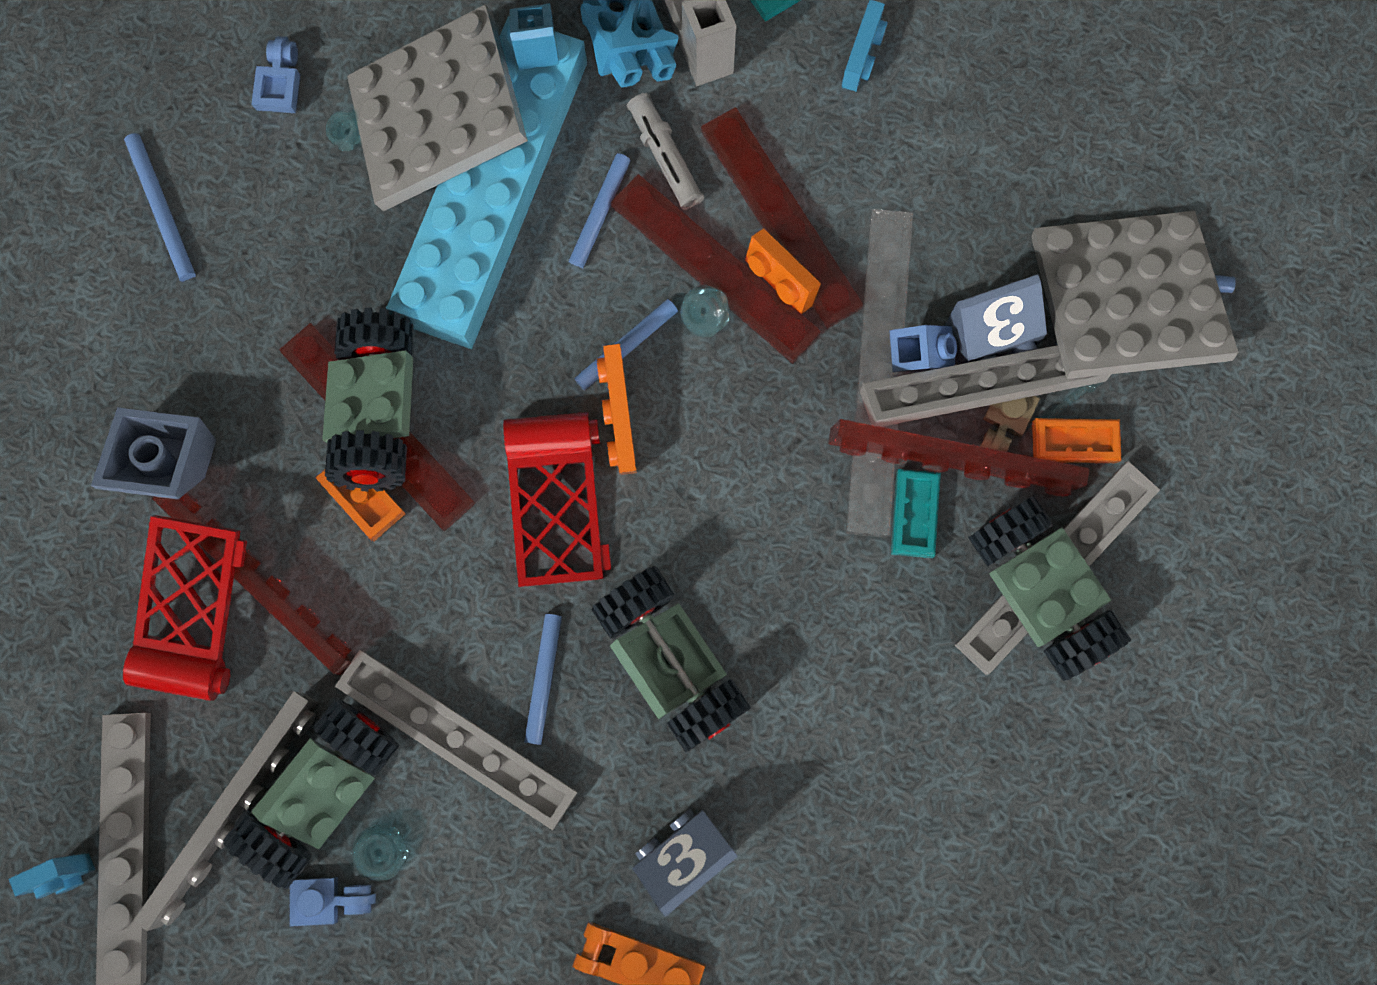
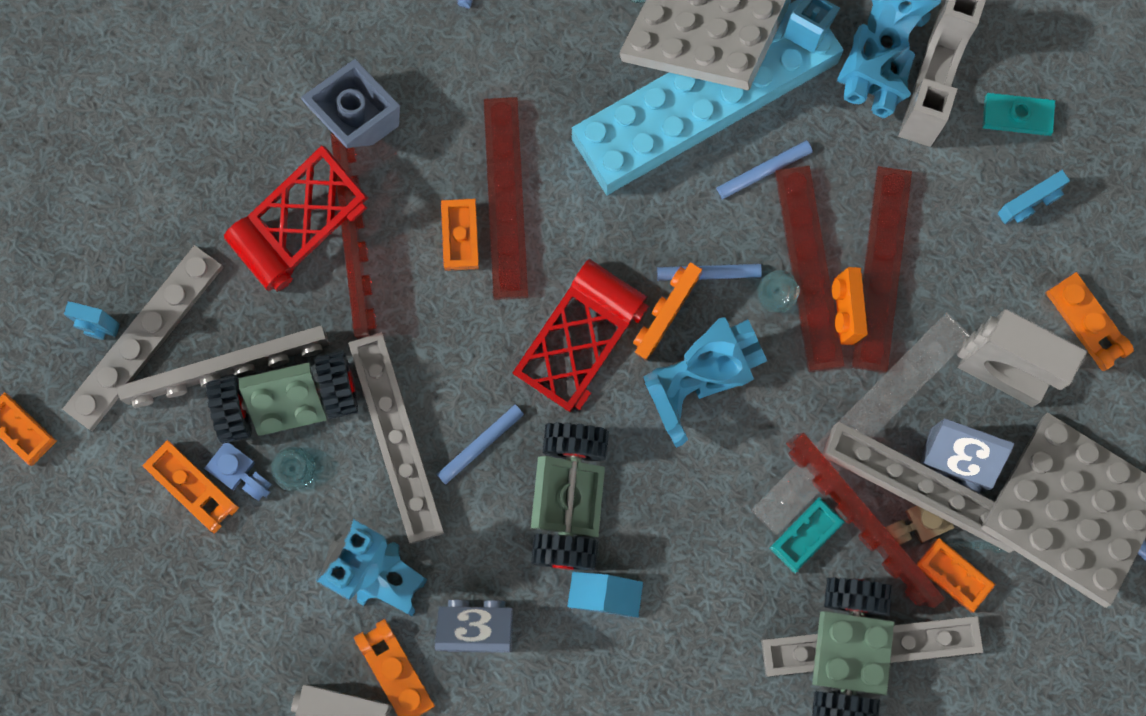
camera: 40 degrees right, 0 degrees up
(289, 955) = (189, 485): none -> orange plate
(369, 400) = (513, 178): plate -> none
(523, 895) = (360, 565): none -> dark azure hips
(657, 137) = (842, 151): light grey pin -> none
(702, 424) = (711, 365): none -> dark azure hips
(777, 723) = (605, 594): none -> dark azure slope
(922, 348) = (900, 431): medium blue brick -> none
(976, 190) = (1019, 357): none -> light grey arch
(1002, 119) = (1089, 321): none -> orange plate

